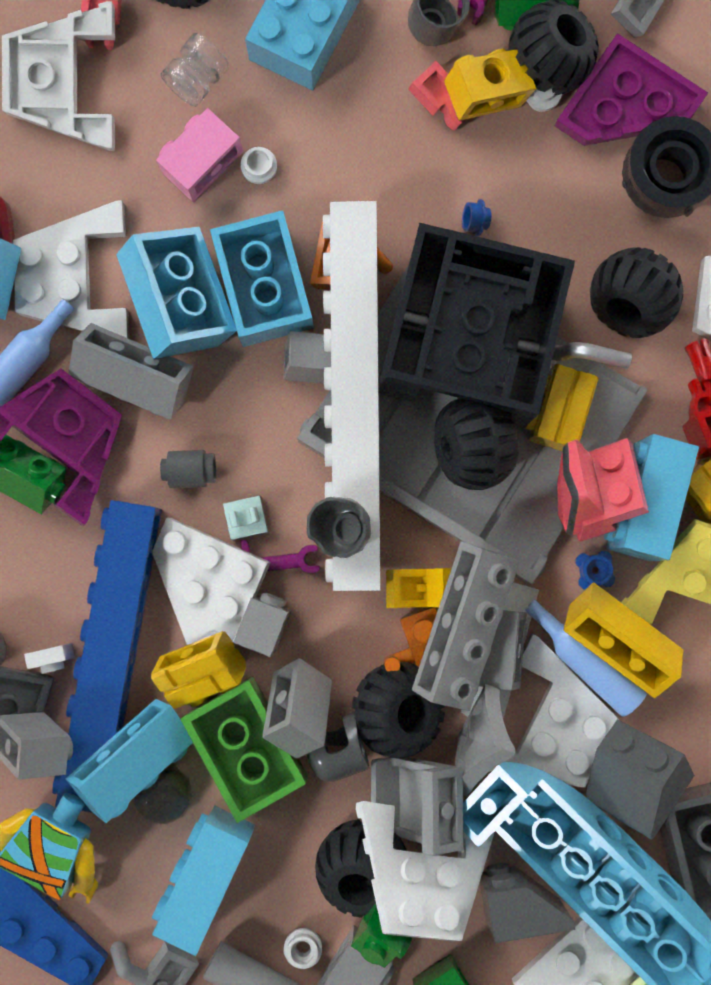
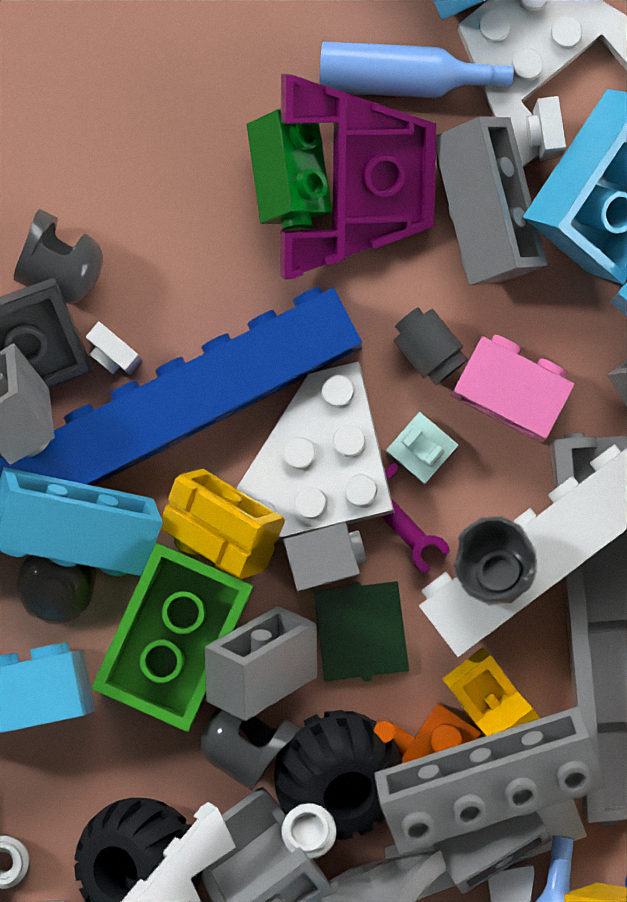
camera: 60 degrees right, 0 degrees up
(113, 307) = (546, 128): none -> white plate
(249, 439) = (513, 387): none -> bright pink brick
(325, 632) = (361, 631): none -> clear green piece
(417, 754) = (309, 828): none -> white plate

